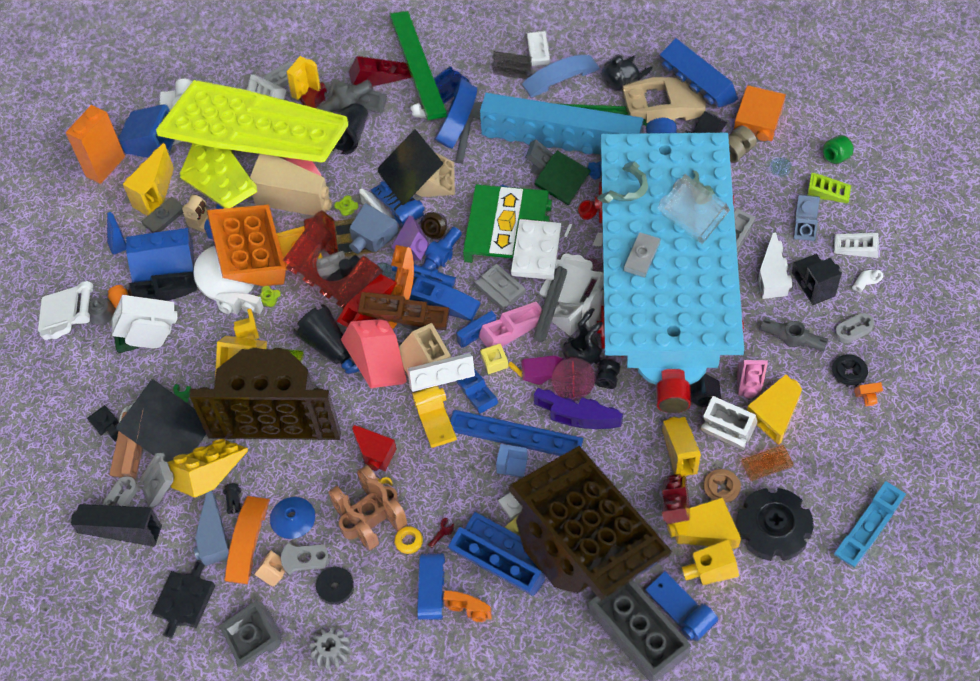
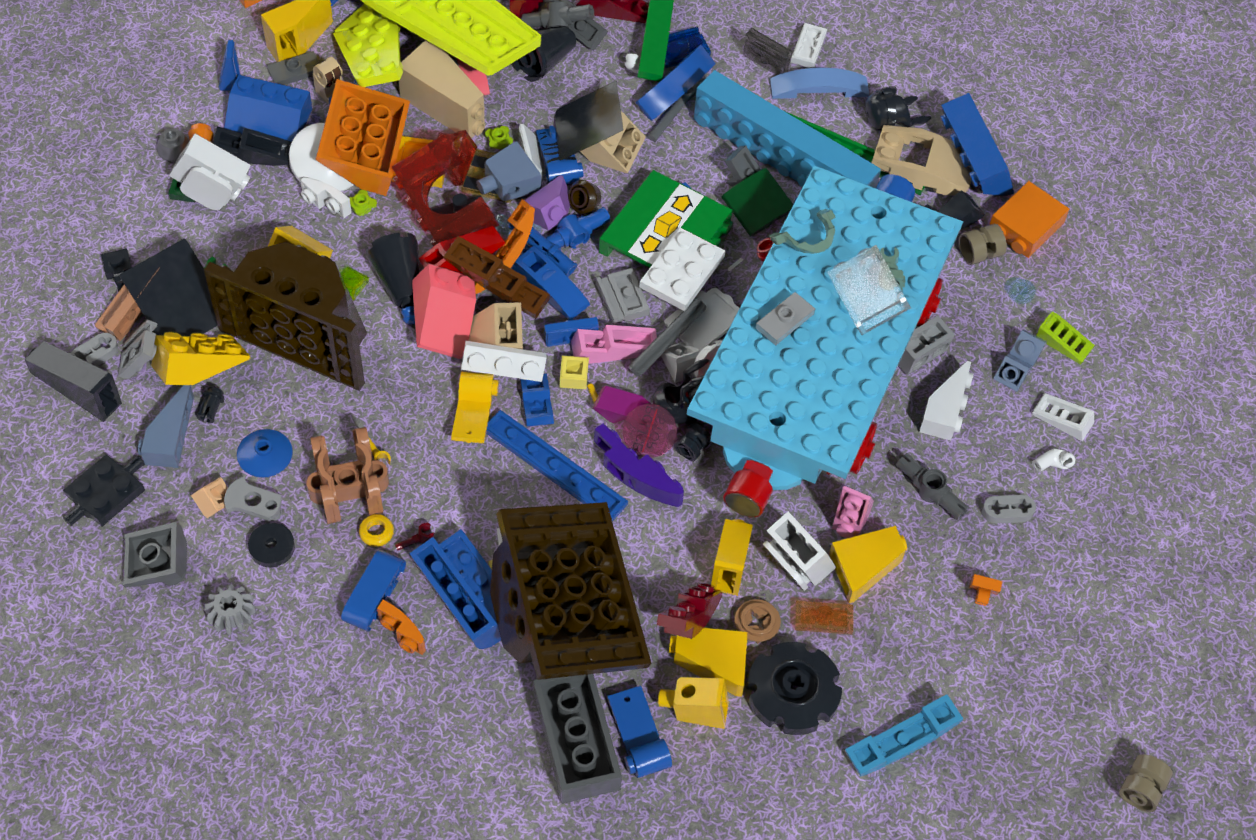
camera: 15 degrees right, 0 degrees up
(60, 310) = (131, 127): white piece -> none
(245, 539) = (200, 454): orange slope -> none
(246, 327) = (320, 227): yellow panel -> none
(329, 264) = (443, 193): light grey plate -> none
(374, 448) = (390, 415): red slope -> none
(512, 460) = (533, 490): medium blue panel -> none
(704, 390) = (795, 501): black brick -> none
(817, 277) = (993, 433): black brick -> none
(838, 149) = (1099, 297): green head -> none
(849, 361) = (979, 543): black gear -> none

